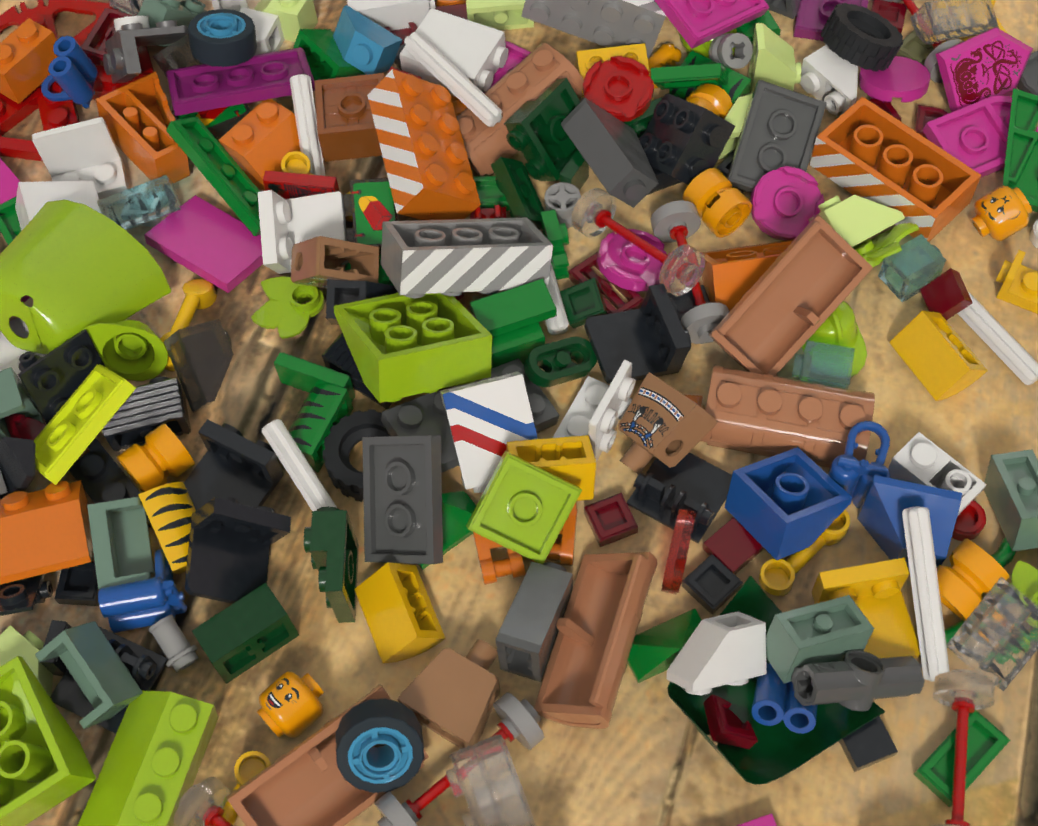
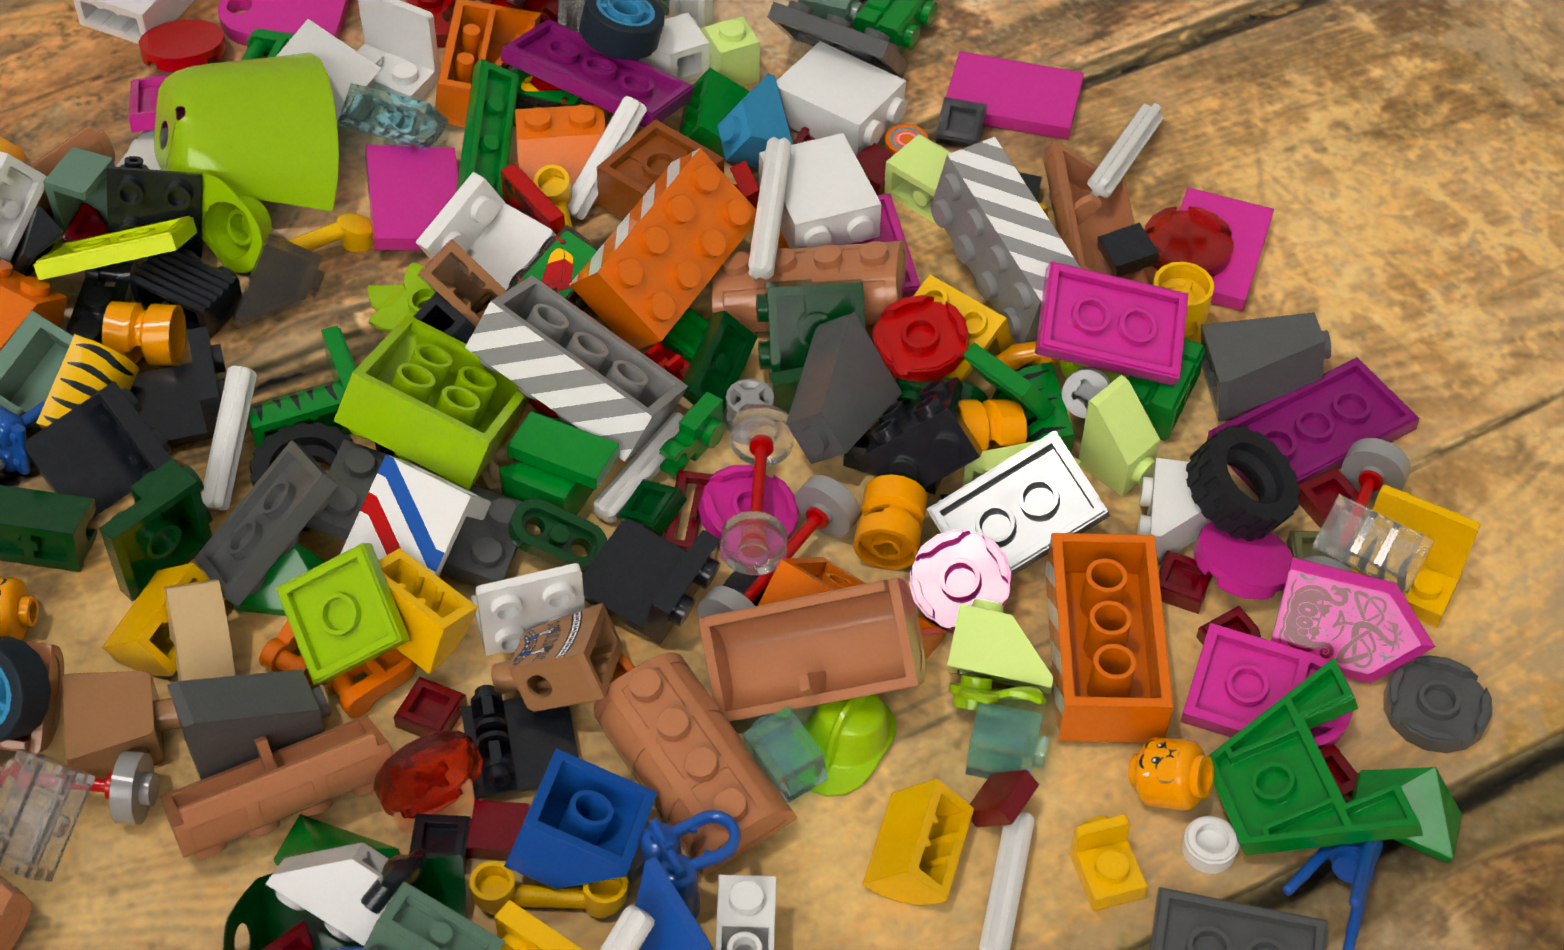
camera: 40 degrees right, 10 degrees down
(444, 596) = (199, 630): none -> tan slope
(759, 617) = (395, 871): none -> black bar

